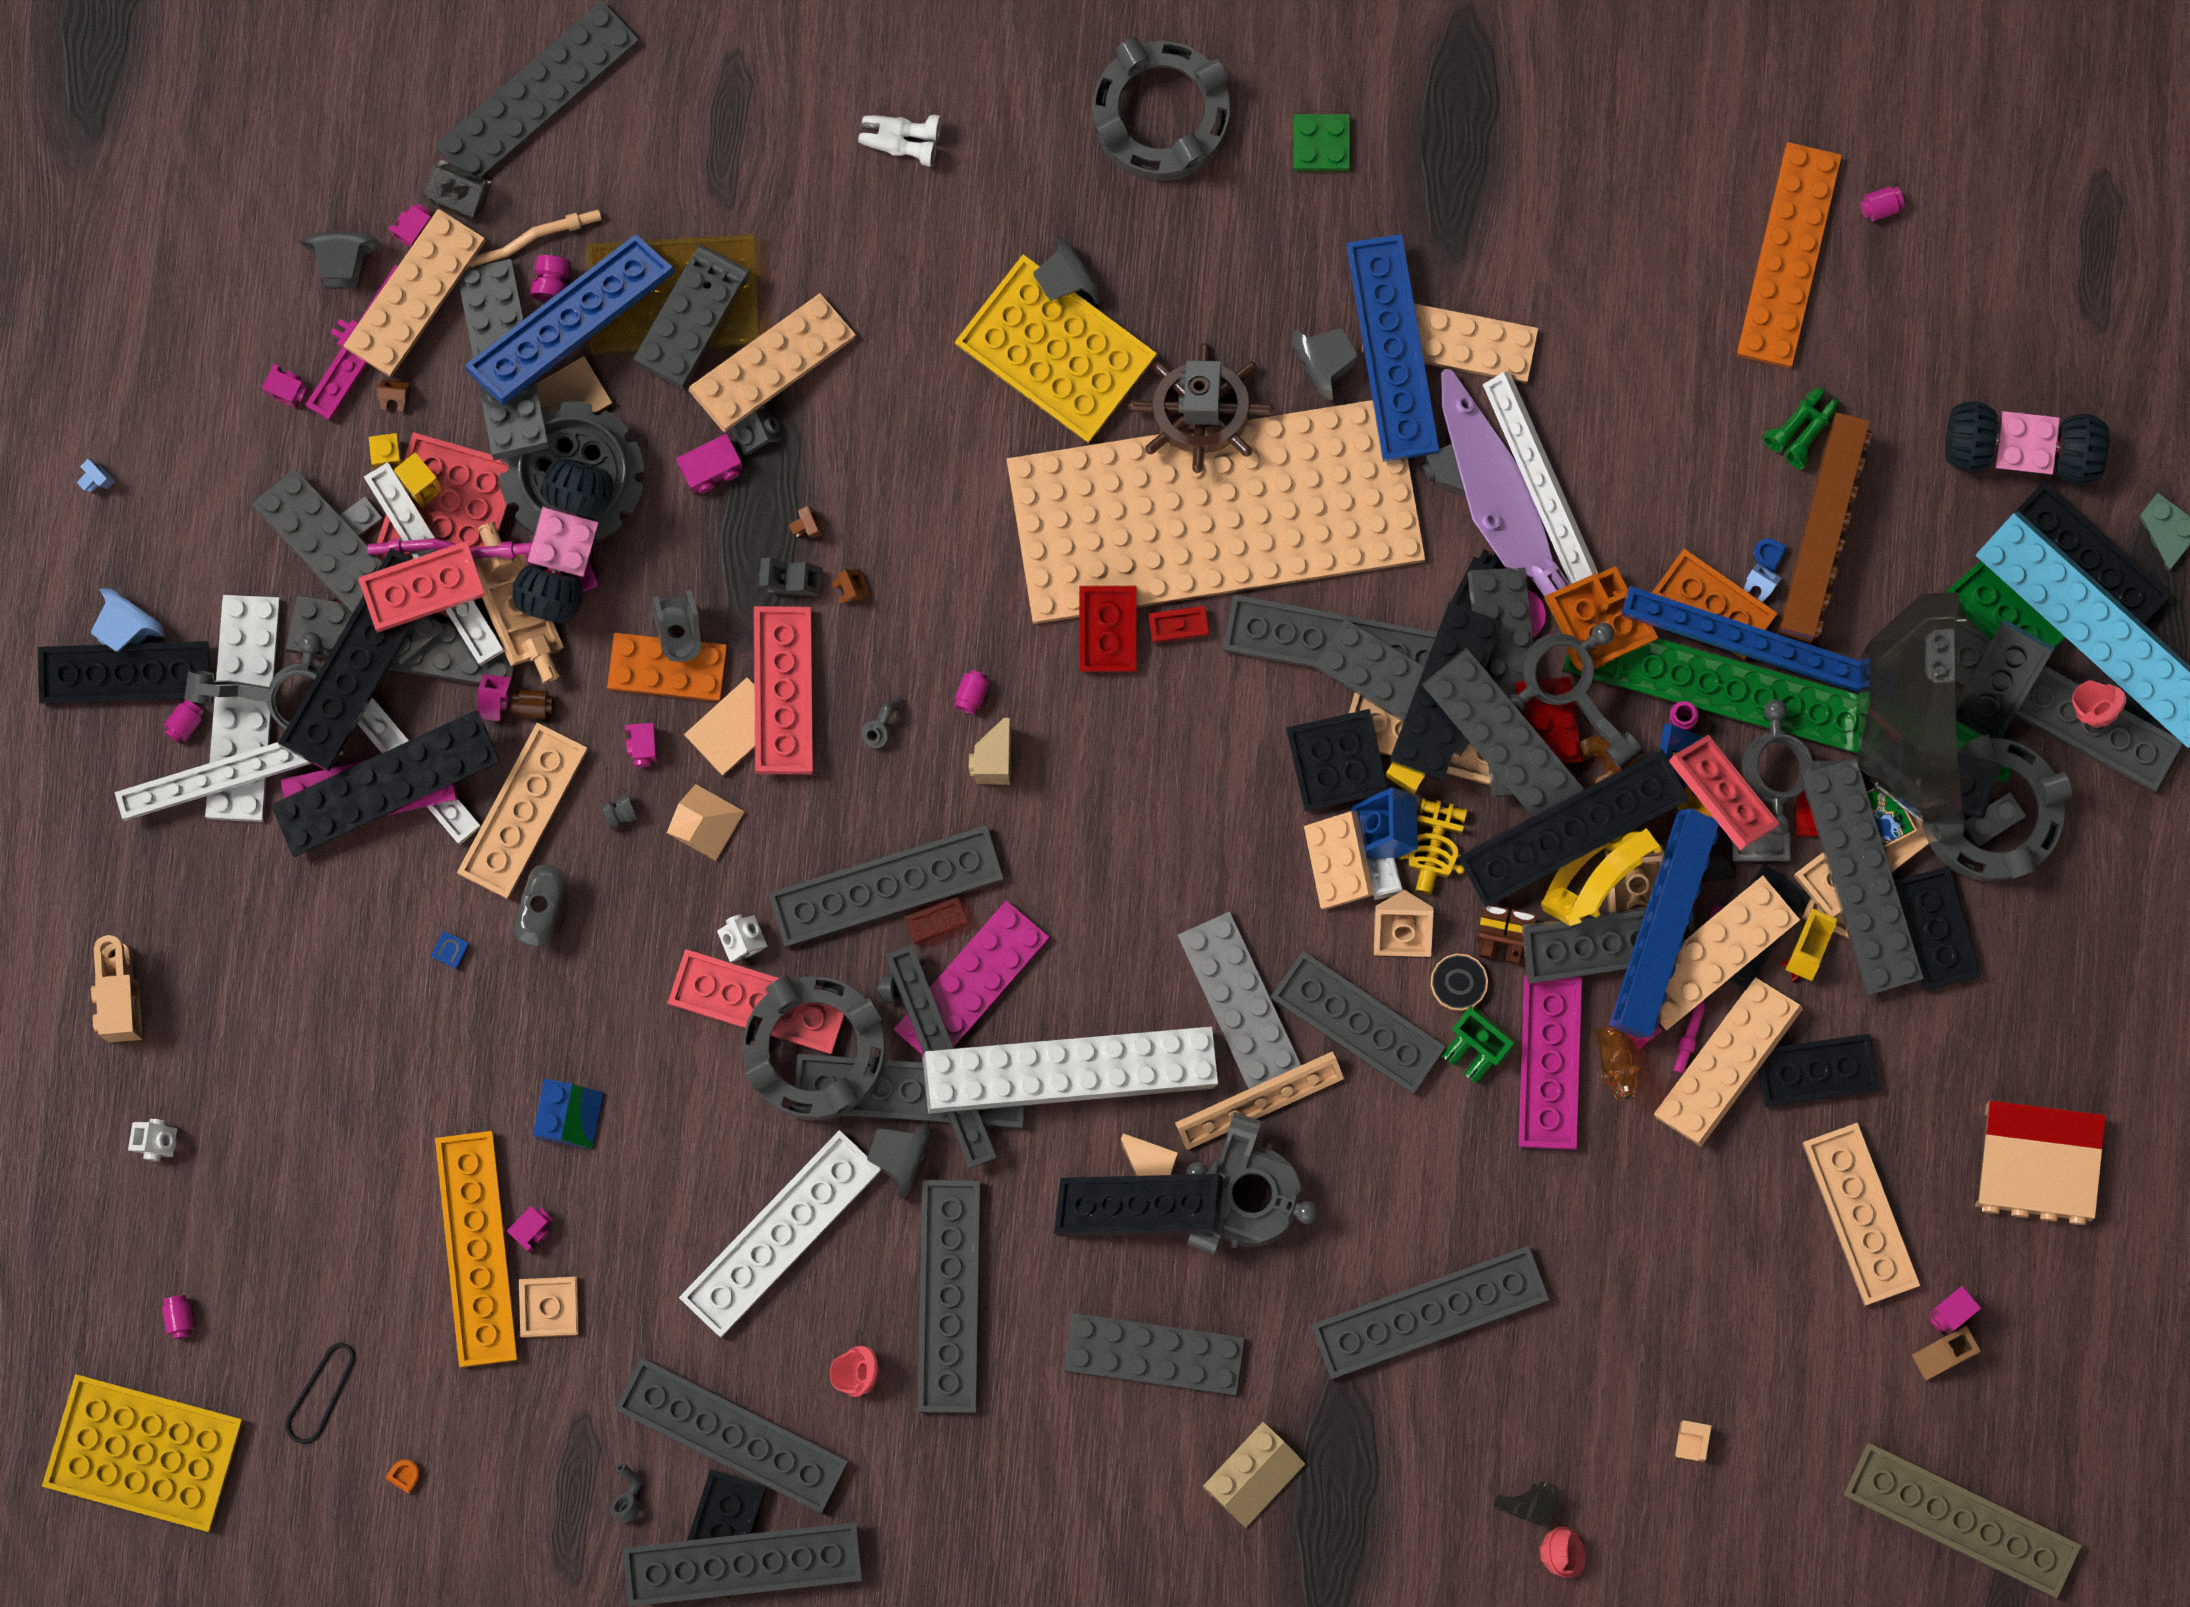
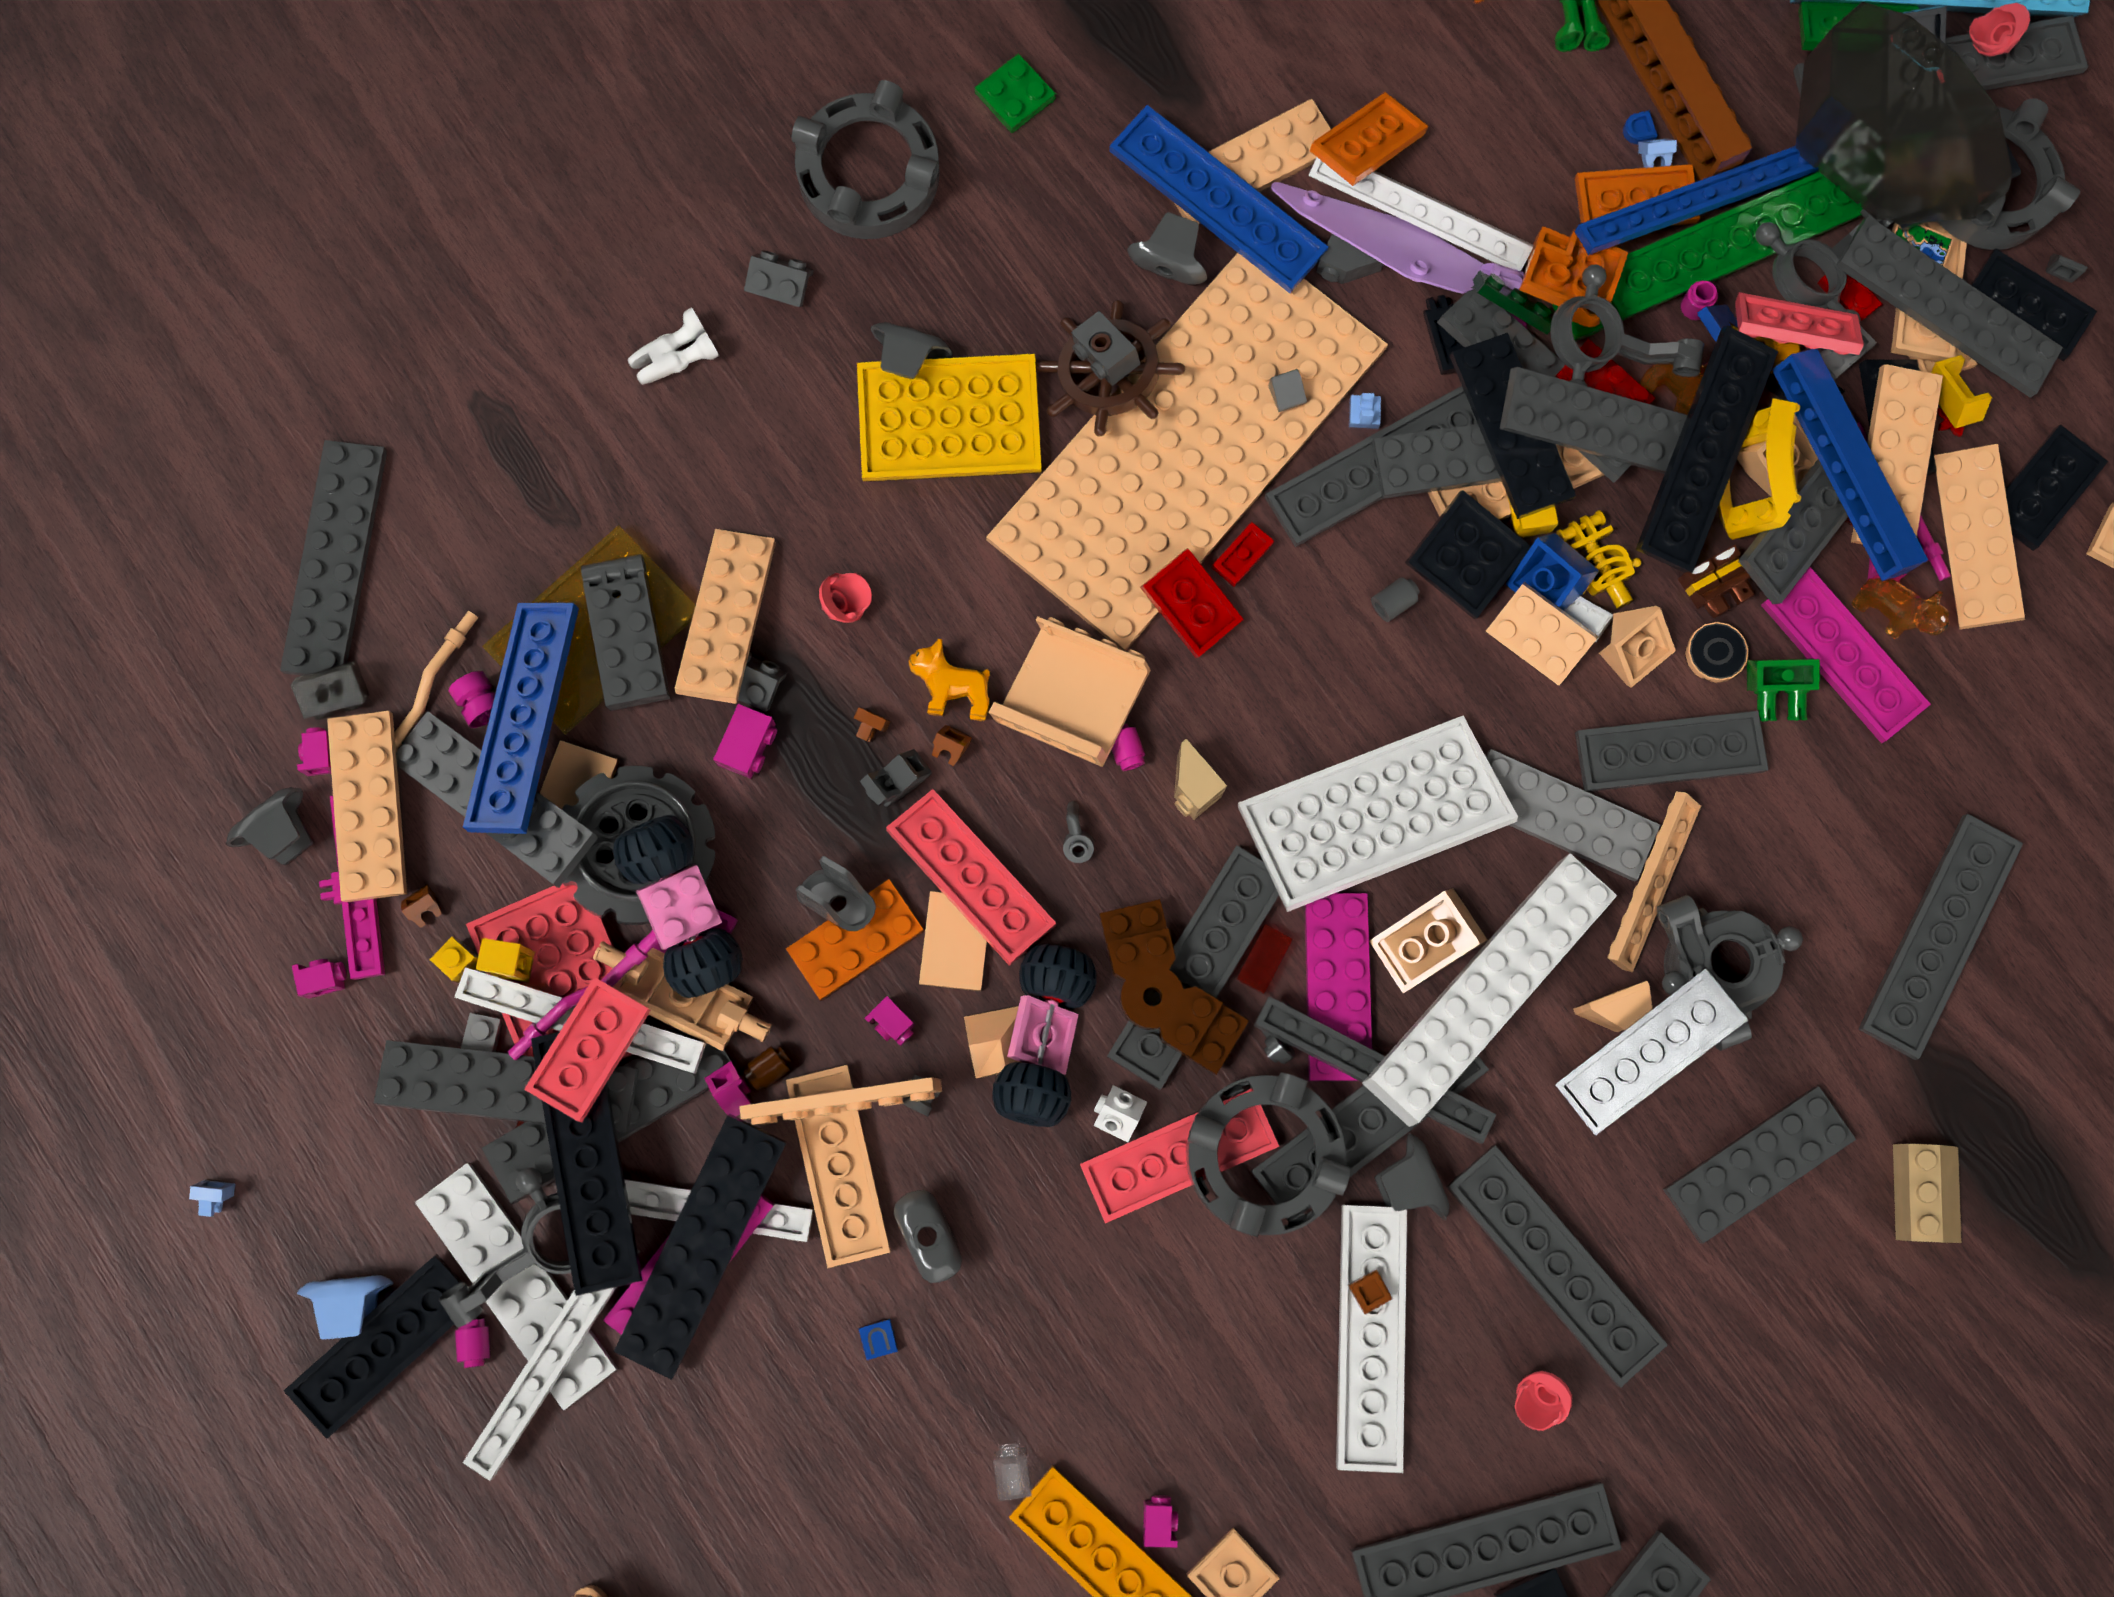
camera: 50 degrees left, 0 degrees up
(462, 1108) = (1012, 1472): none -> clear brick
(553, 761) = (831, 1102): none -> light nougat plate
(568, 1114) = (1104, 1394): blue slope -> none
(736, 840) = (1043, 1035): none -> black plate
(804, 1201) = (1370, 1291): none -> dark orange tile
(842, 910) = (1186, 1018): none -> reddish brown plate
(866, 418) = (845, 597): none -> coral piece
(887, 541) = (949, 682): none -> light orange animal
(967, 621) = (1073, 691): none -> light nougat panel
(1023, 142) = (778, 278): none -> dark grey bracket
(1062, 1004) = (1428, 940): none -> light nougat slope
(1103, 884) = (1376, 813): none -> white plate
(1259, 748) = (1395, 598): none -> dark grey brick
(1314, 532) = (1287, 390): none -> dark grey slope
(1363, 595) = (1364, 411): none -> light blue tile
(1532, 591) = (1513, 301): none -> dark green plate
(1545, 394) = (1368, 138): none -> orange plate
(1993, 924) = (2064, 268): none -> dark grey slope

